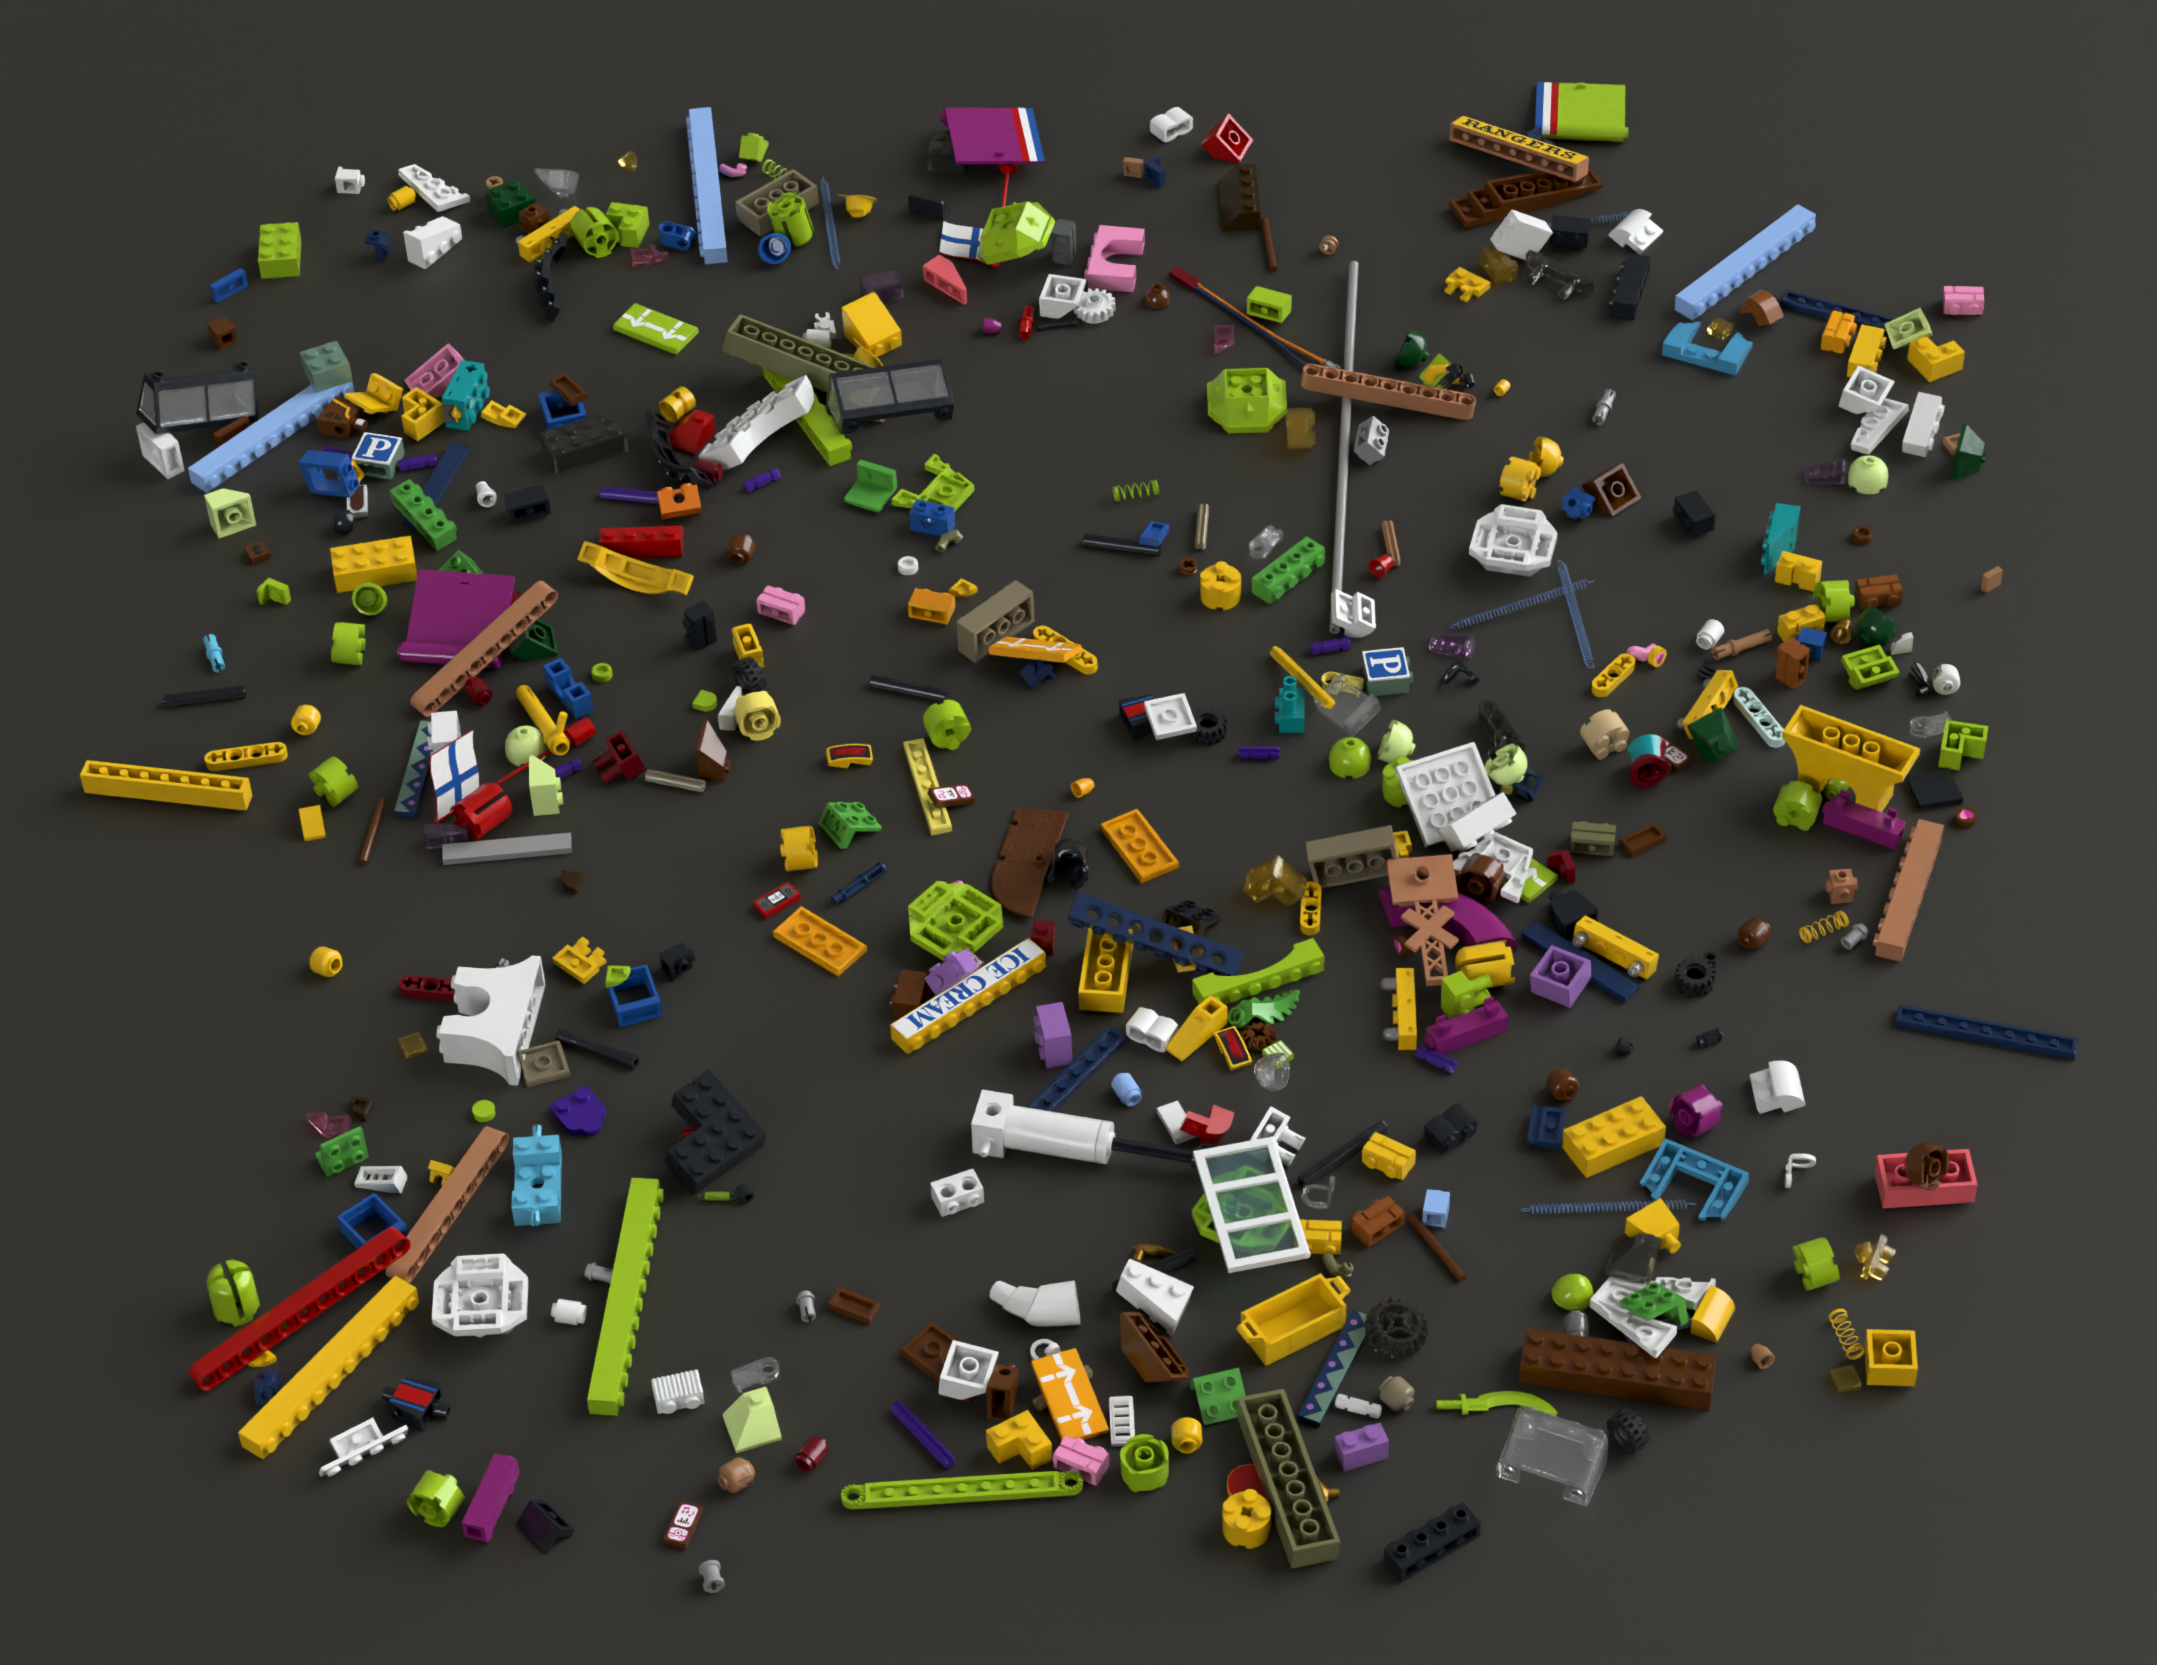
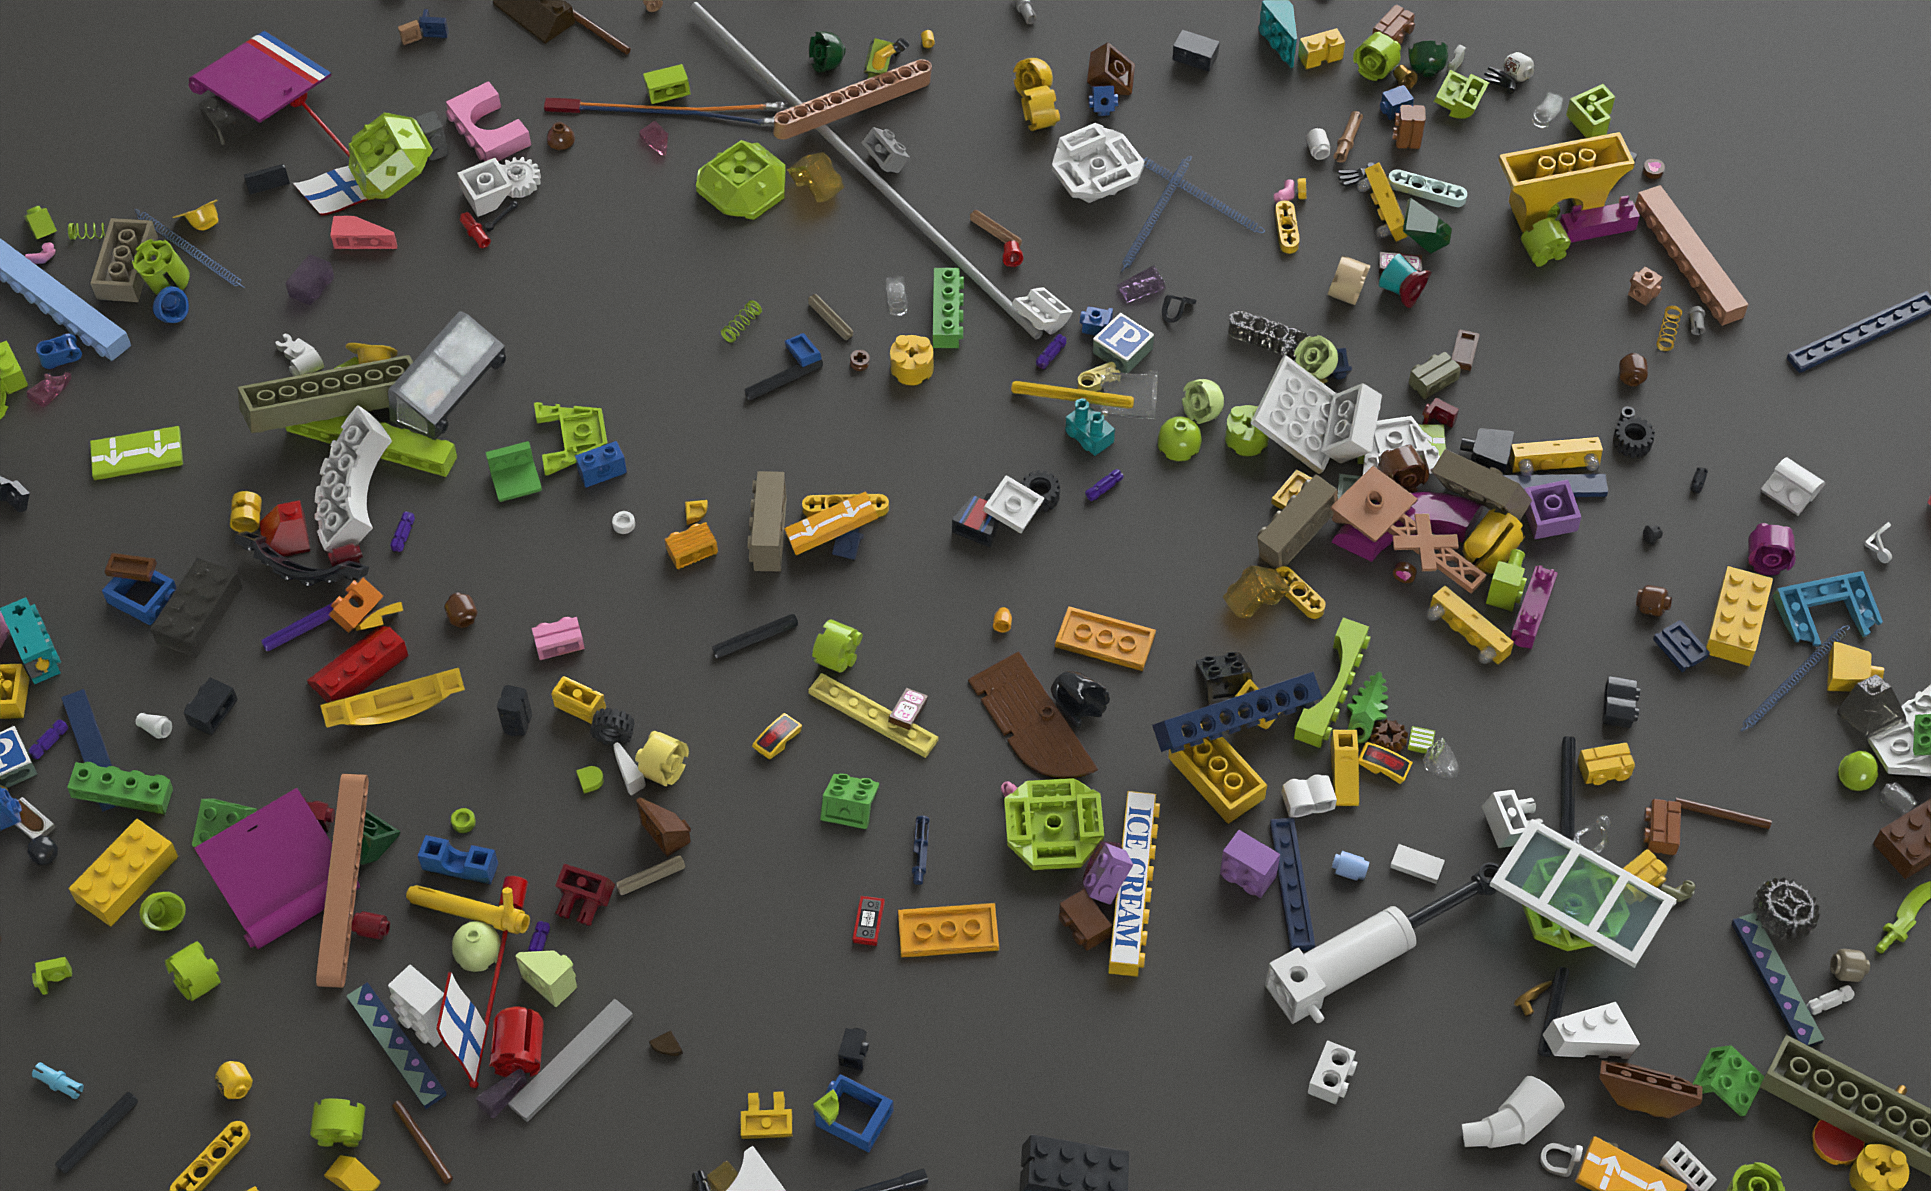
camera: 45 degrees left, 10 degrees up
(502, 416) = (88, 633): yellow slope -> none
(681, 518) = (374, 619): none -> yellow slope
(799, 848) = (843, 856): yellow brick -> none
(871, 325) = (346, 320): yellow slope -> none
(945, 538) = (634, 467): olive arm -> none
(991, 326) = (446, 253): magenta hose -> none
(1044, 935) = (1131, 778): dark red brick -> none
(1186, 1435) = (1751, 1138): yellow head -> none
(1210, 1128) = (1455, 845): brick -> none
(1294, 1318) = (1711, 963): yellow container -> none
(1361, 1447) = (1880, 1034): medium lavender brick -> none
(1384, 641) = (1095, 320): none -> blue brick
(1436, 1059) = (1538, 650): dark purple axle -> none
(1436, 1208) = (1689, 779): light blue brick -> none
(1518, 921) = (1481, 484): none -> dark tan brick
(1793, 621) = (1372, 89): yellow brick -> none

